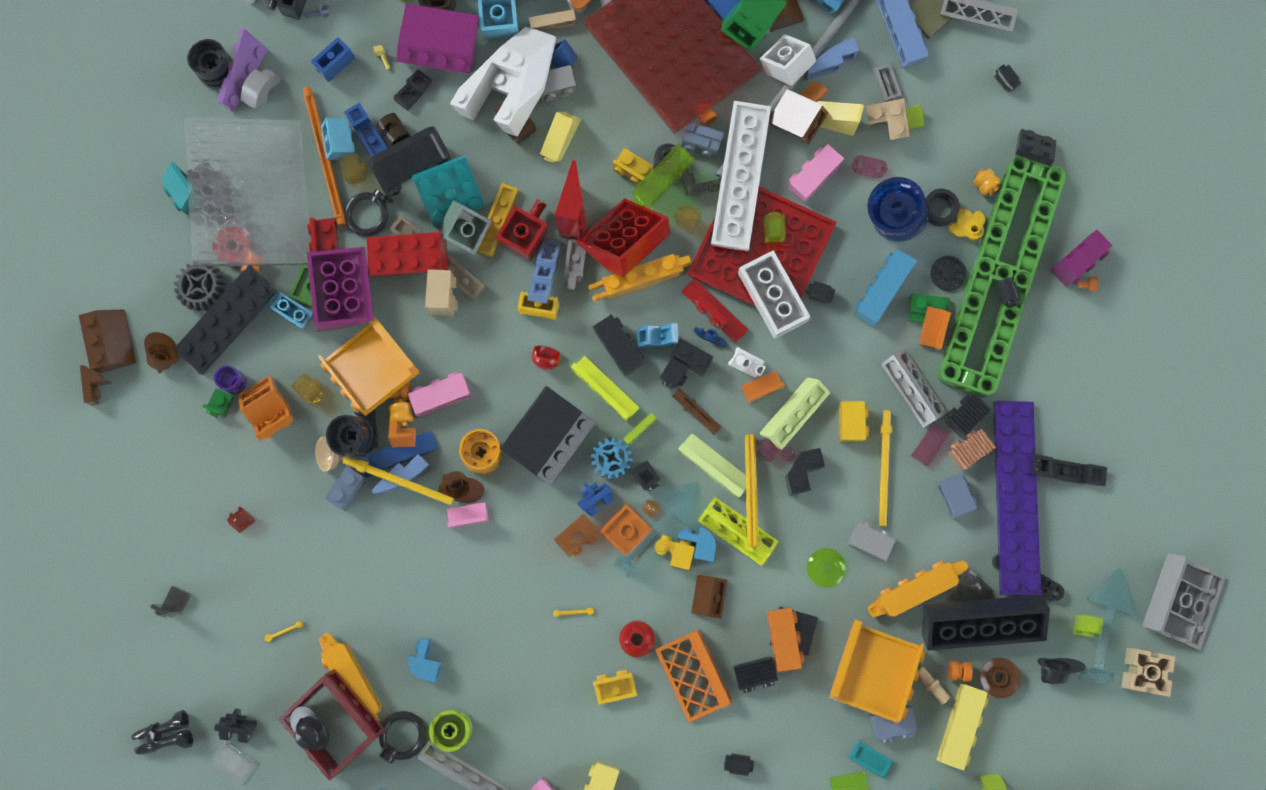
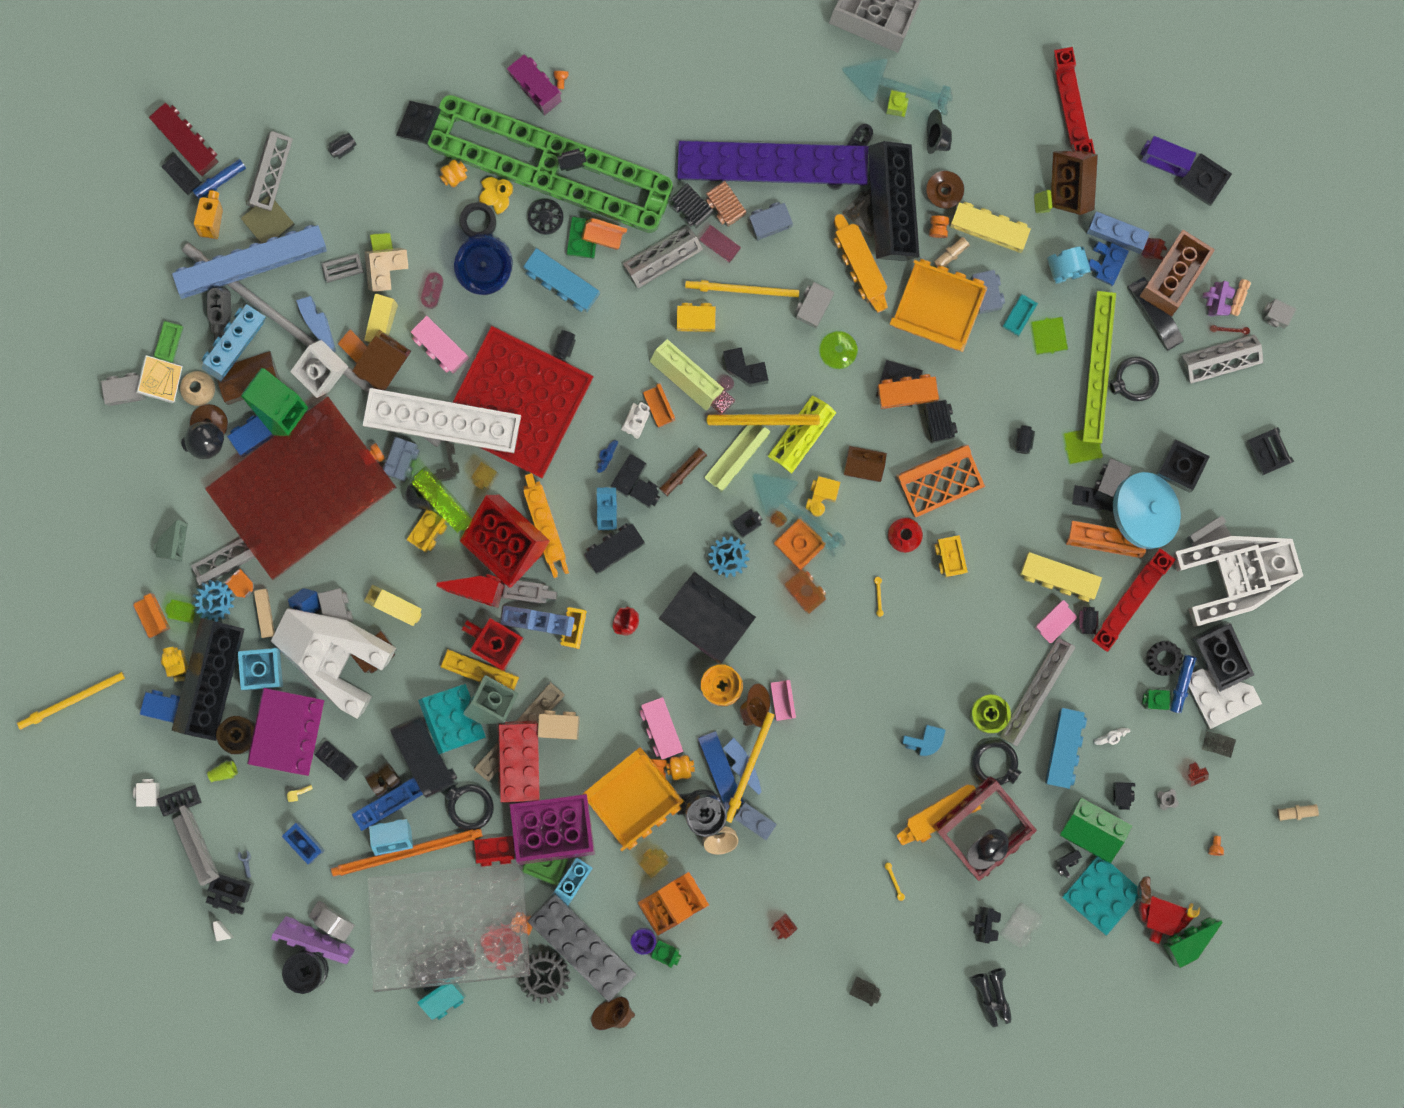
camera: 90 degrees left, 5 degrees up
(90, 381) = (639, 1085): reddish brown slope -> none
(107, 340) = (598, 1070): reddish brown slope -> none
(353, 169) = (423, 820): clear yellow brick -> none
(401, 437) = (705, 764): orange panel -> none
(587, 502) = (765, 575): blue hips -> none
(605, 388) = (658, 562): neon yellow fence -> none
(639, 429) = (699, 527): lime tile -> none
(704, 541) = (816, 467): dark azure brick -> none
(718, 315) = (575, 457): red bracket -> none
(773, 294) = (569, 391): white brick -> none
(774, 227) = (497, 388): clear neon green brick -> none
(1068, 471) = (748, 111): black slope -> none
(1158, 667) = (935, 41): tan brick -> none

